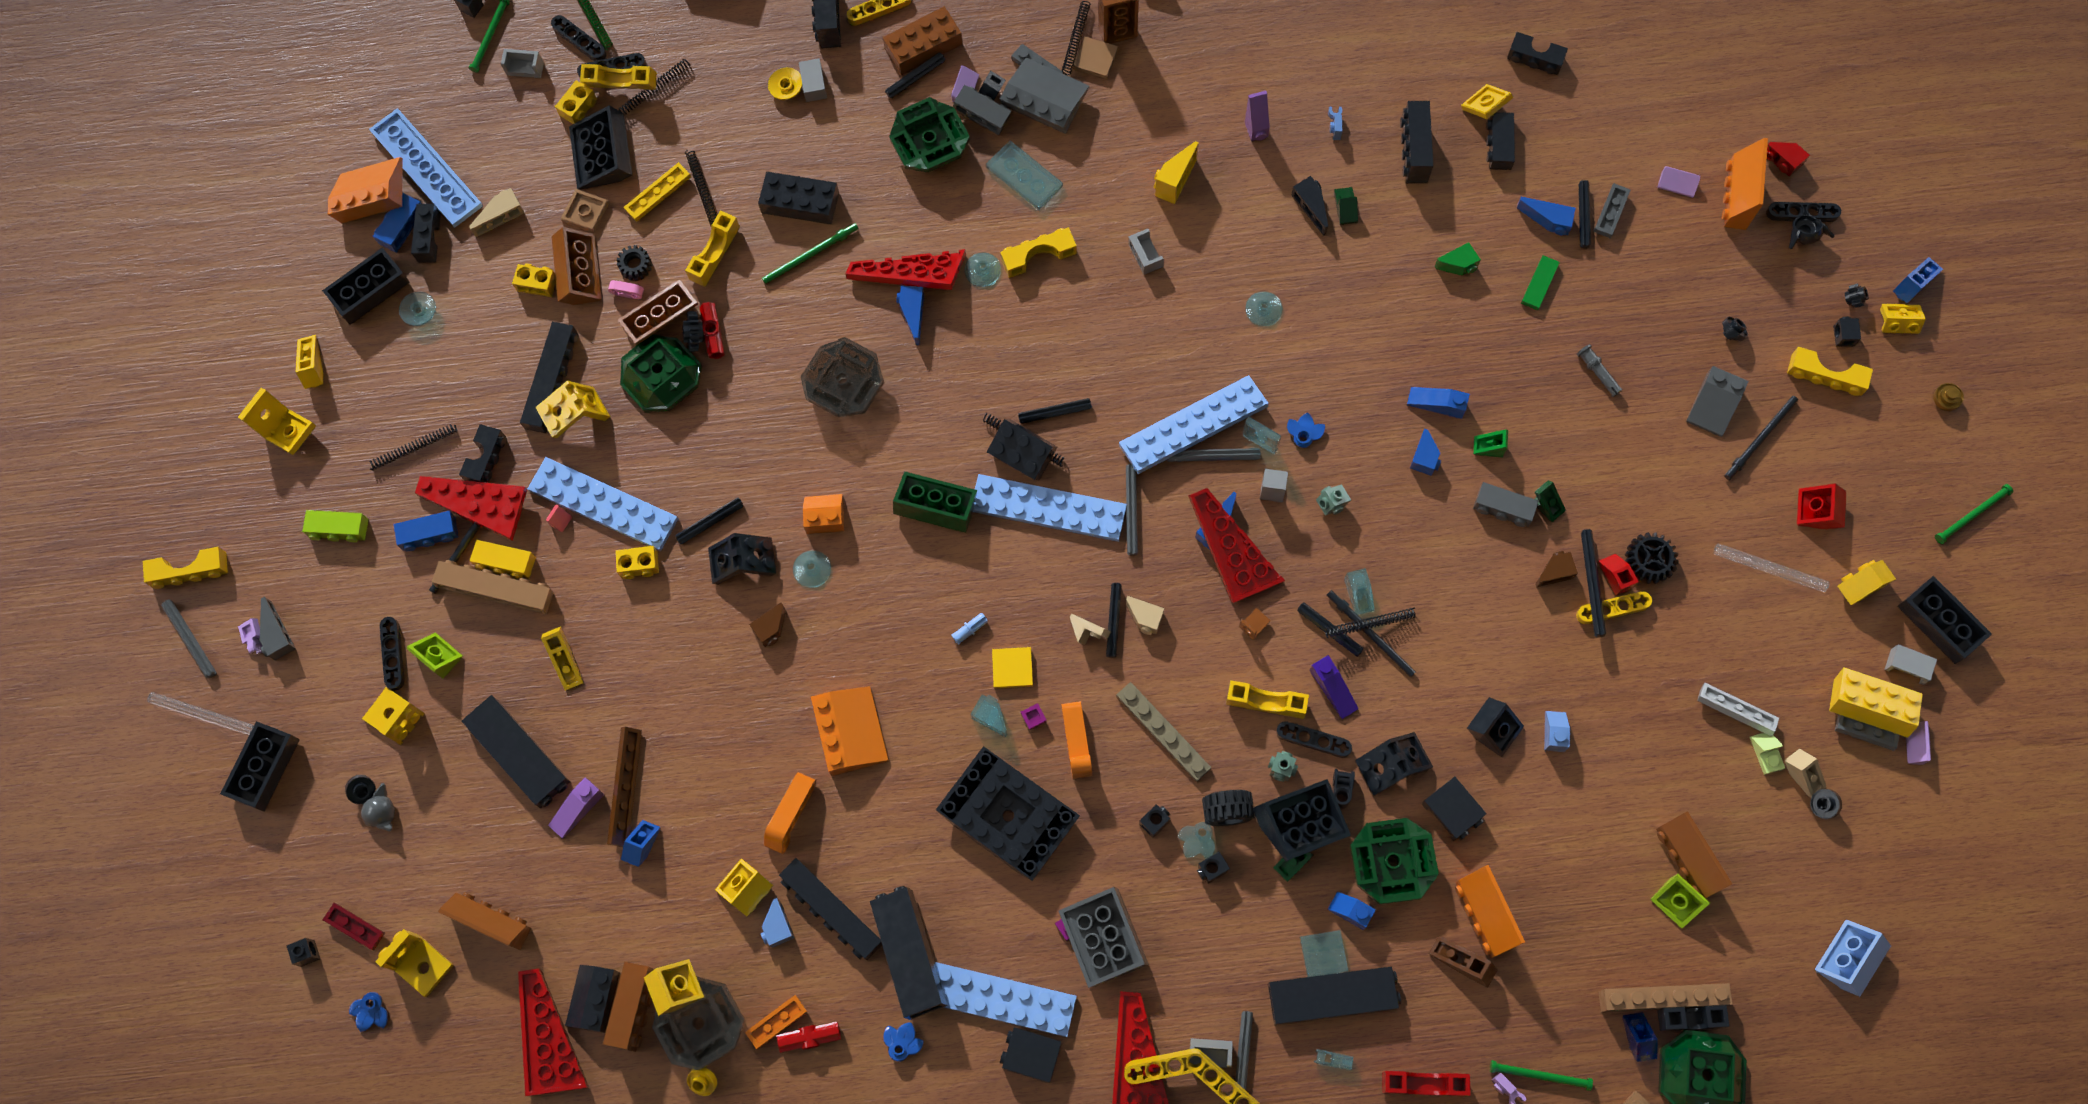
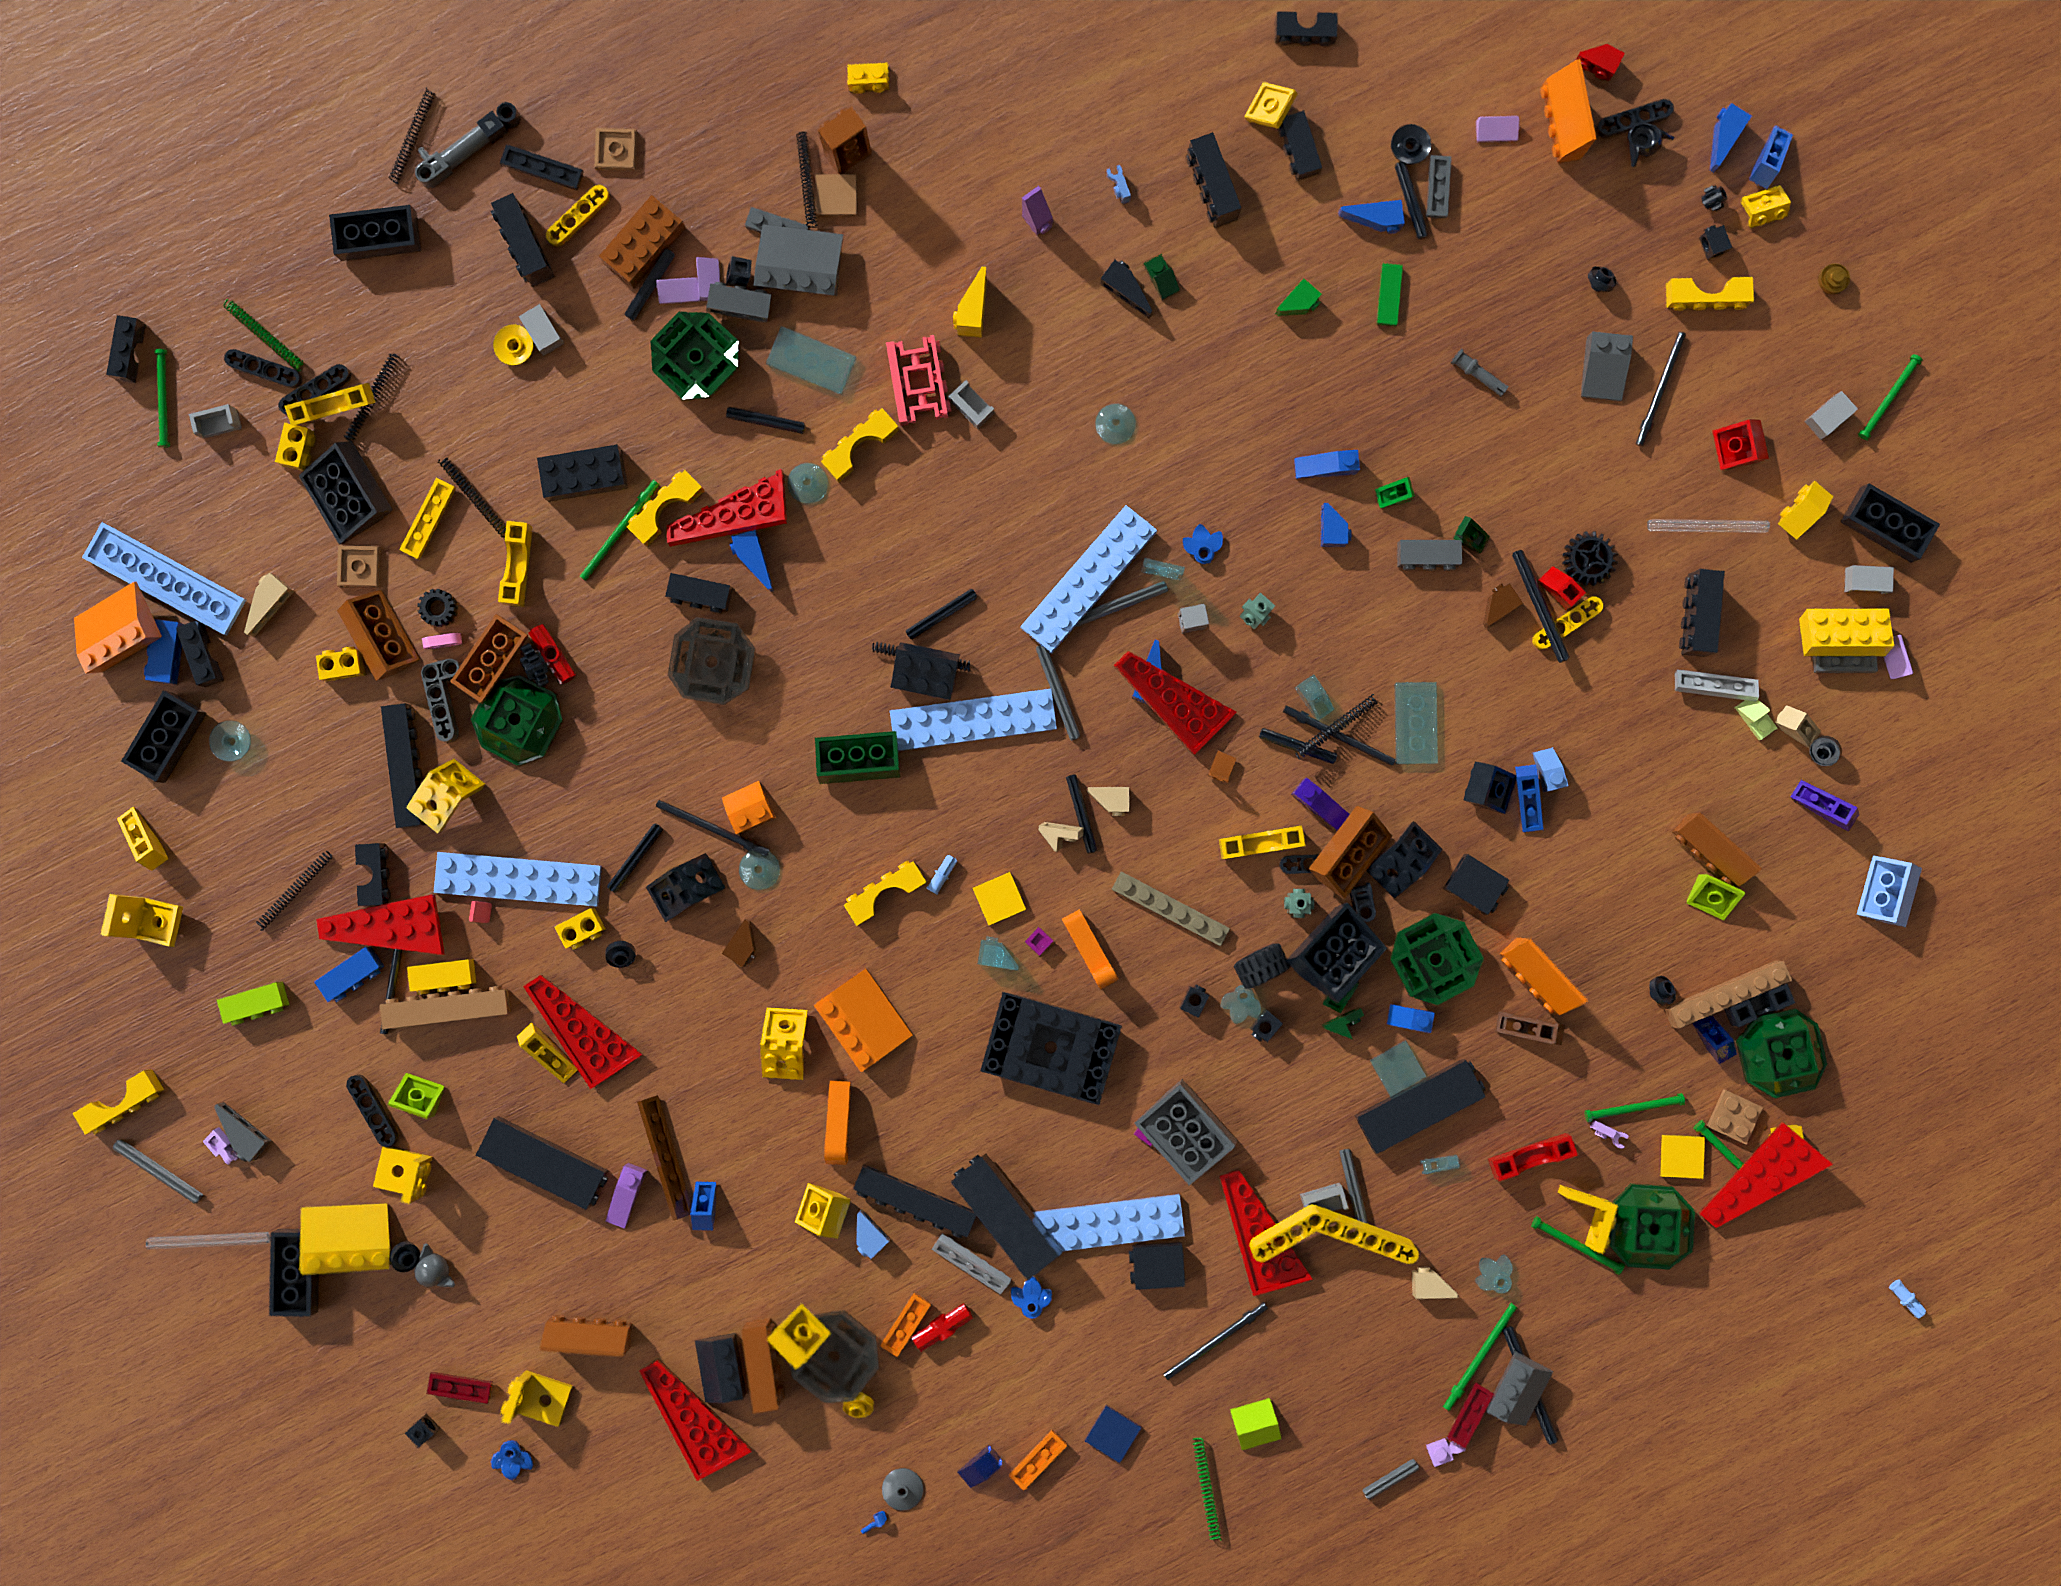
camera: 25 degrees left, 15 degrees up
(316, 750) = (344, 1238): none -> yellow slope
(600, 658) = (587, 1040): none -> red wing
(606, 337) = (444, 701): none -> dark grey beam
(661, 595) = (620, 954): none -> black plate
(769, 722) = (783, 1044): none -> yellow bracket
(810, 542) = (748, 844): none -> black bar
(855, 323) = (698, 593): none -> black brick
(859, 987) = (971, 1264): none -> light grey plate
(875, 238) = (646, 524): none -> yellow arch
(889, 628) = (862, 906): none -> yellow arch
(936, 86) = (678, 290): none -> lavender slope
(967, 208) = (765, 420): none -> black axle
(1093, 215) = (902, 382): none -> coral fence
(1281, 891) = (1338, 1024): none -> dark green slope
(1346, 736) = (1350, 851): none -> dark orange slope
(1445, 647) = (1416, 722): none -> clear light blue tile
(1529, 749) = (1529, 798): none -> blue slope
(1598, 162) = (1413, 135): none -> black dish
(1602, 971) = (1662, 990): none -> black plate
(1742, 638) = (1702, 612): none -> black brick
(1813, 855) = (1826, 805): none -> dark purple slope
(1887, 243) = (1726, 131): none -> blue slope
(1913, 509) = (1831, 415): none -> light grey panel

